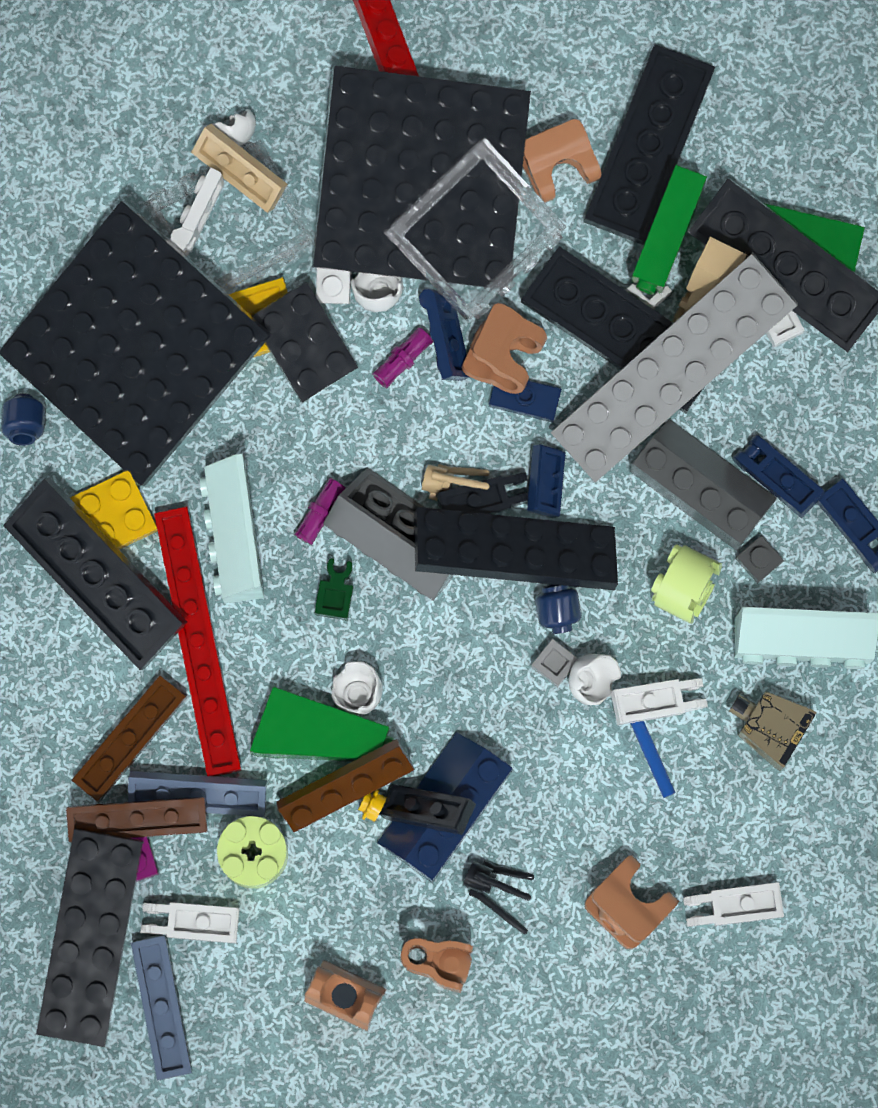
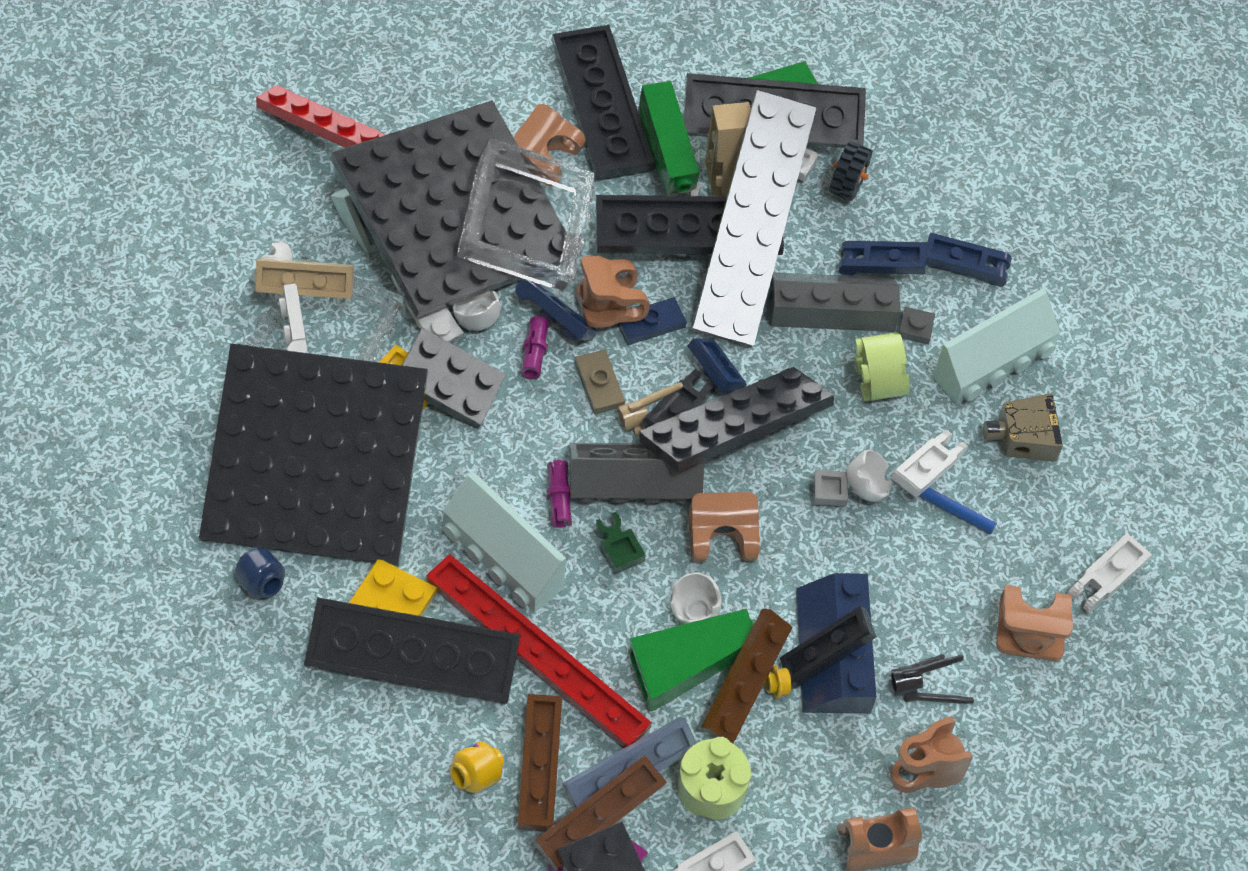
camera: 40 degrees left, 20 degrees down
(74, 709) = (477, 767): none -> yellow head
(435, 427) = (599, 381): none -> dark tan plate
(442, 628) = (724, 514): none -> nougat piece
(558, 608) = (800, 446): dark blue head -> none
(816, 369) = (850, 170): none -> black wheel

